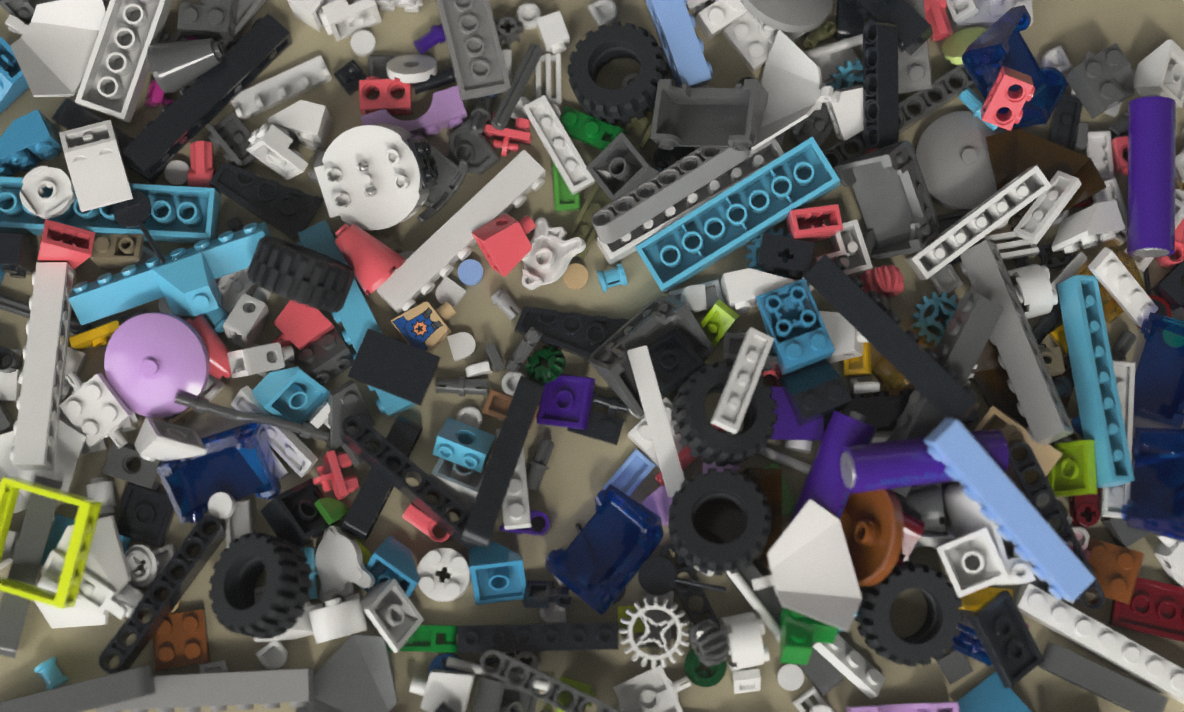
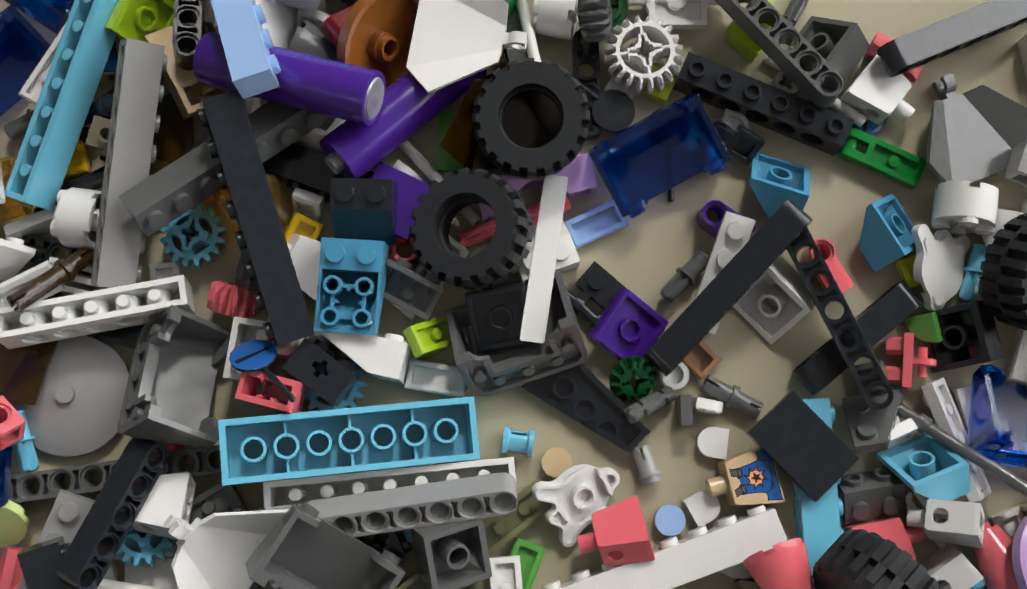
camera: 155 degrees left, 0 degrees up
(391, 613) = (910, 187): white slope -> none
(431, 583) = (849, 202): white brick -> none
(464, 445) = (759, 345): medium azure brick -> none
(470, 416) = (737, 359): white tile -> none
(695, 297) = (440, 376): white tile -> none
(742, 380) = (437, 246): white plate -> none
(838, 242) = (258, 356): none -> blue piece
(1019, 240) = (63, 271): none -> dark brown pin

